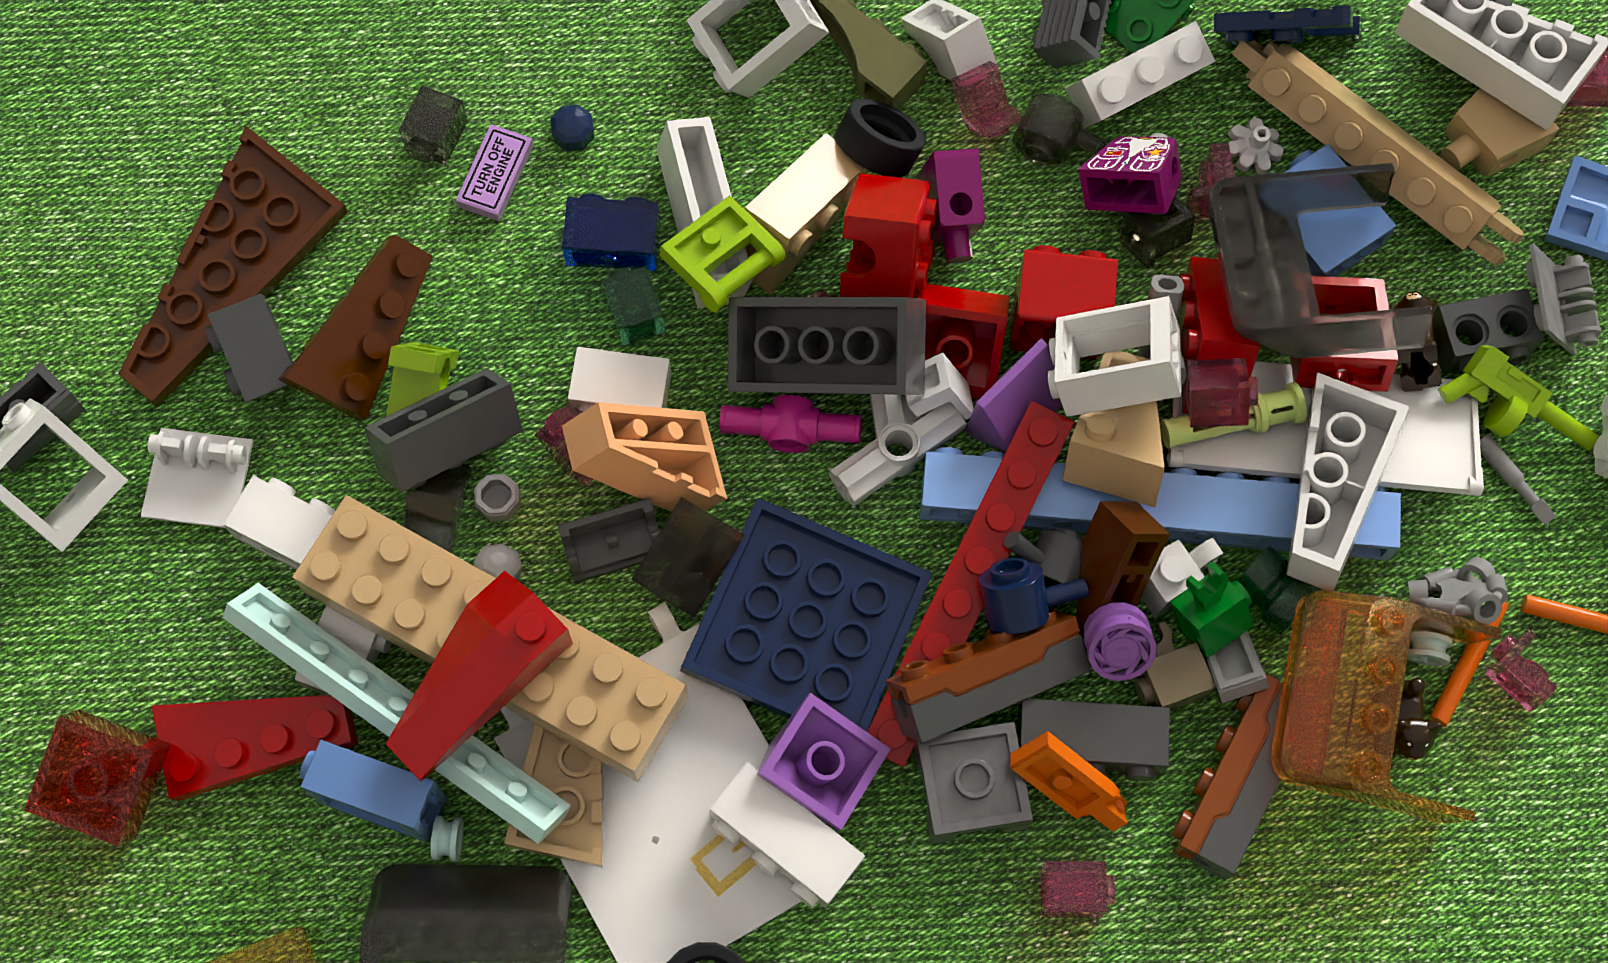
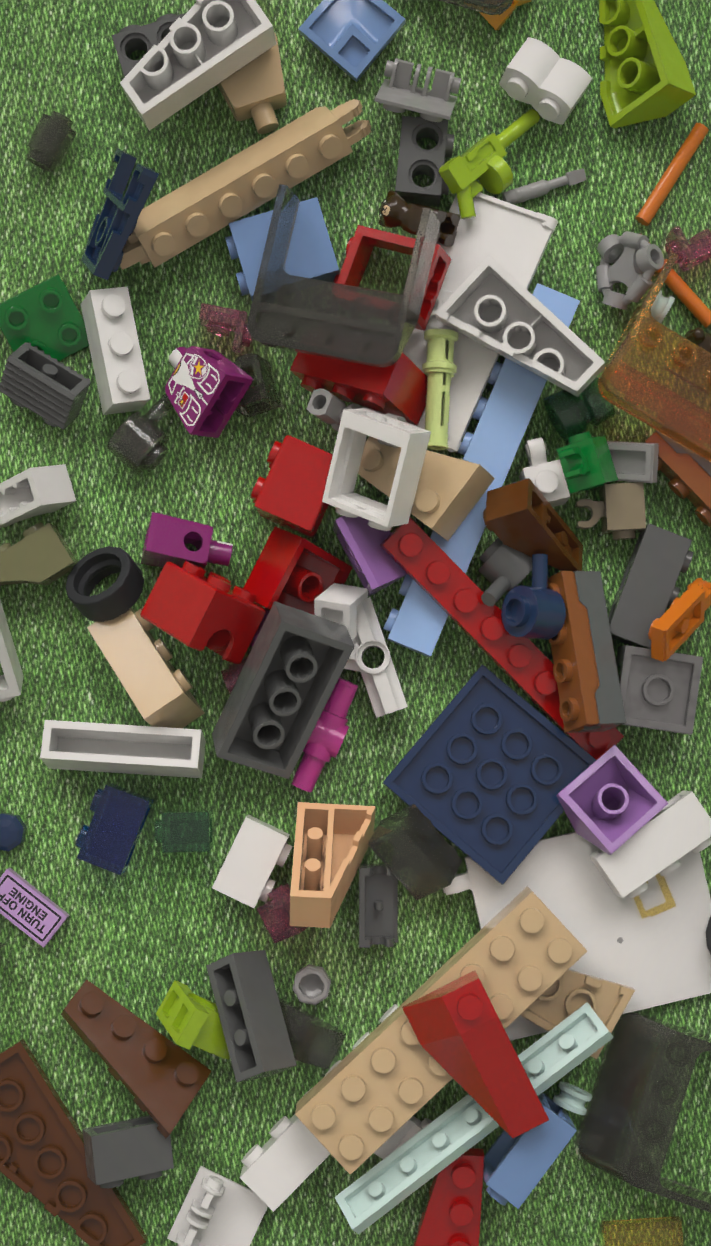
camera: 70 degrees left, 15 degrees up
(497, 558) = (370, 1000): light grey tile -> none
(713, 241) = (166, 756): lime plate -> none
(984, 101) = (97, 485): clear pink bracket -> none
(1117, 640) = (589, 544): medium lavender wheel -> none
(1219, 392) = (424, 395): clear pink brick -> none
(1255, 146) = (201, 285): white plant -> none

